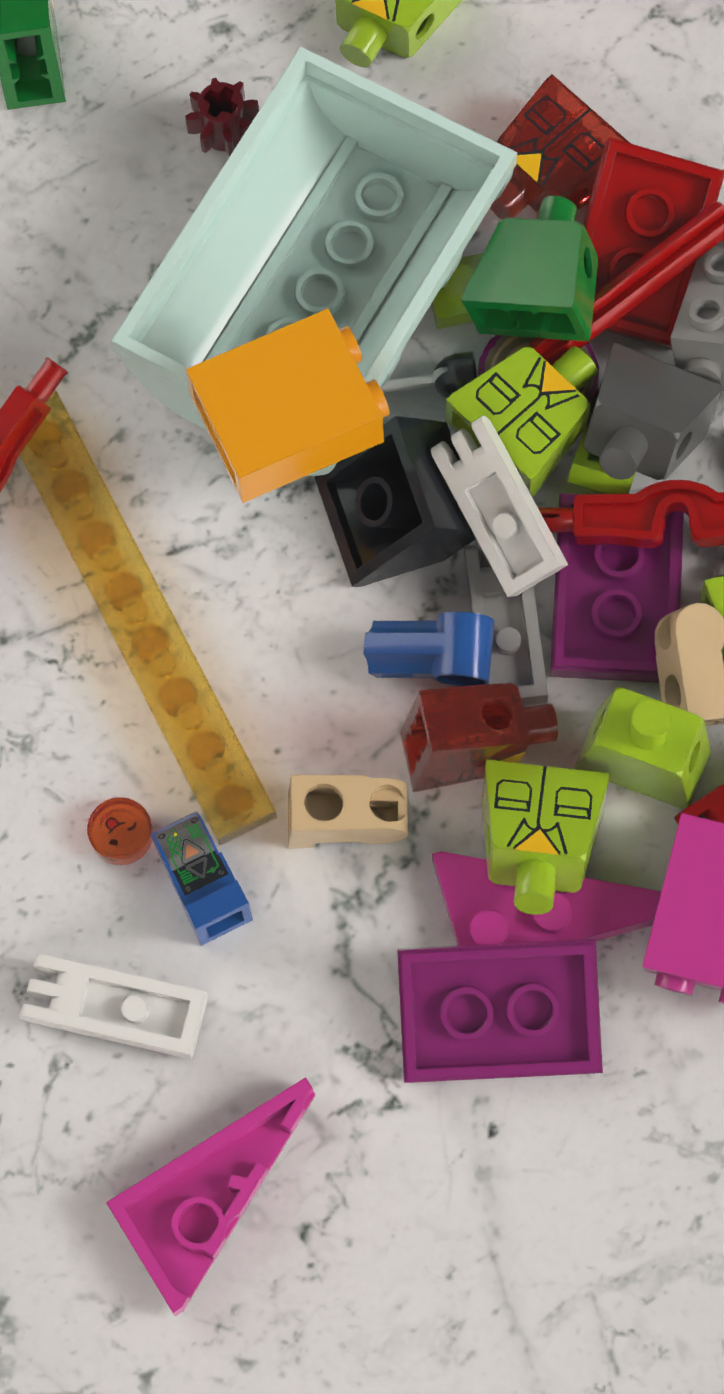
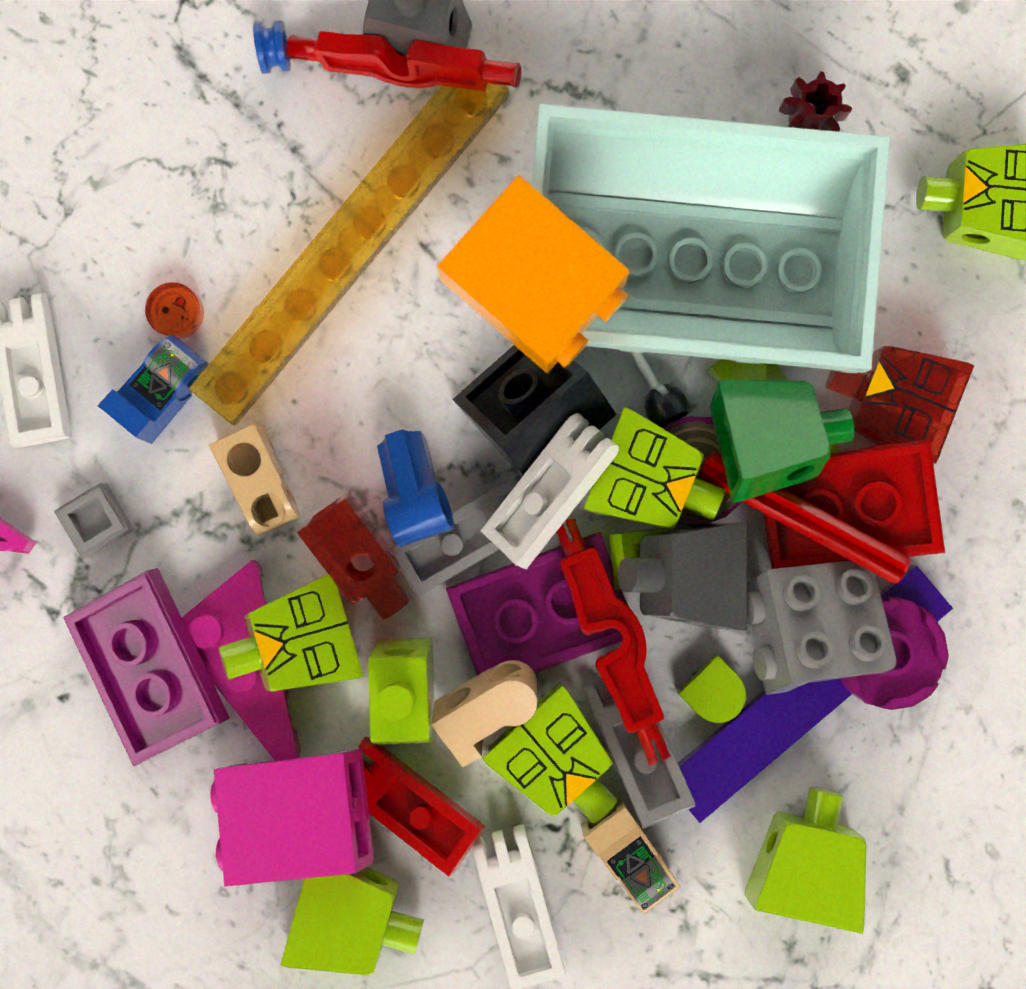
camera: 65 degrees right, 15 degrees up
(310, 1010) = (93, 520): none -> light grey tile

